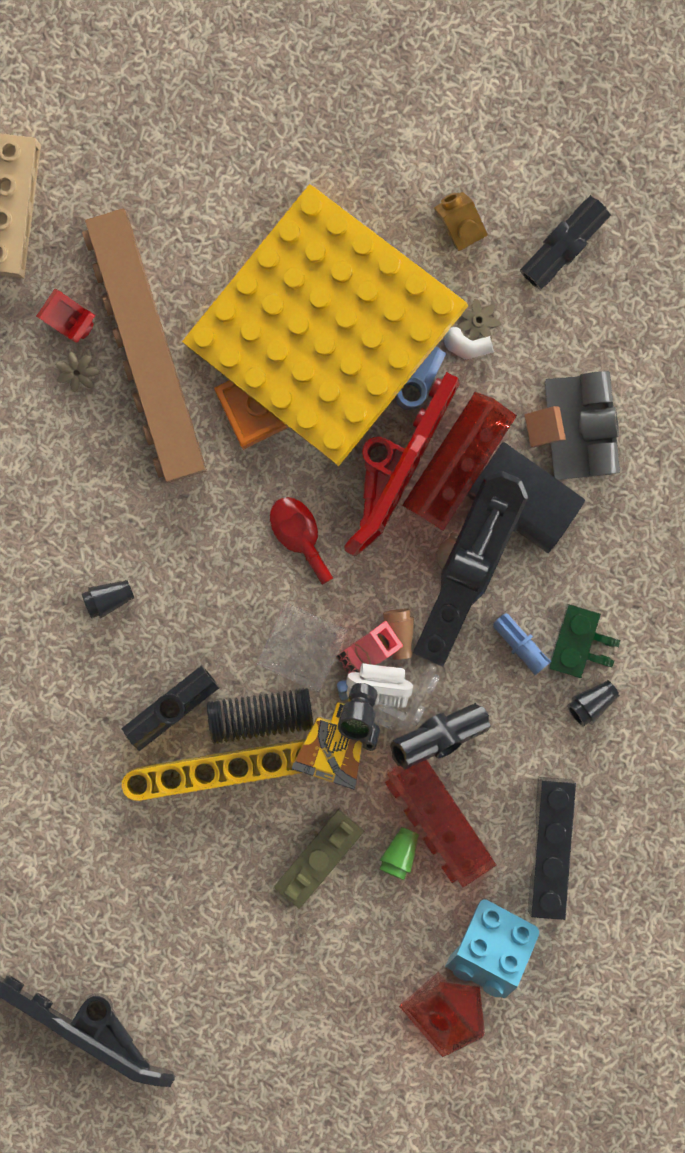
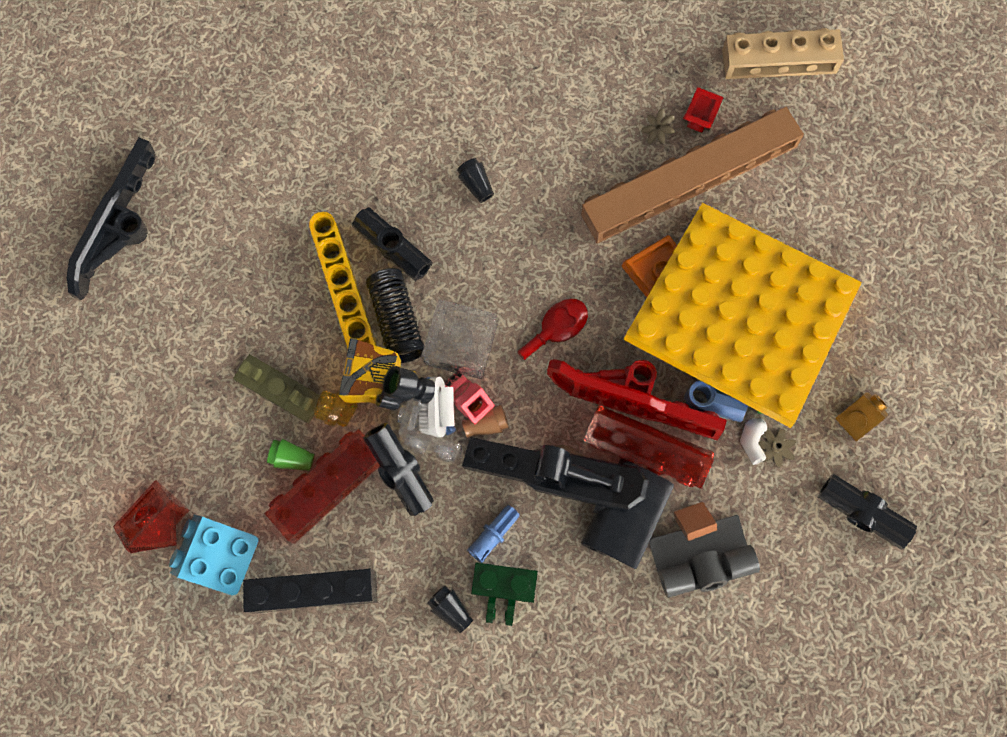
camera: 85 degrees right, 15 degrees down
(358, 802) = (333, 409): none -> clear yellow piece

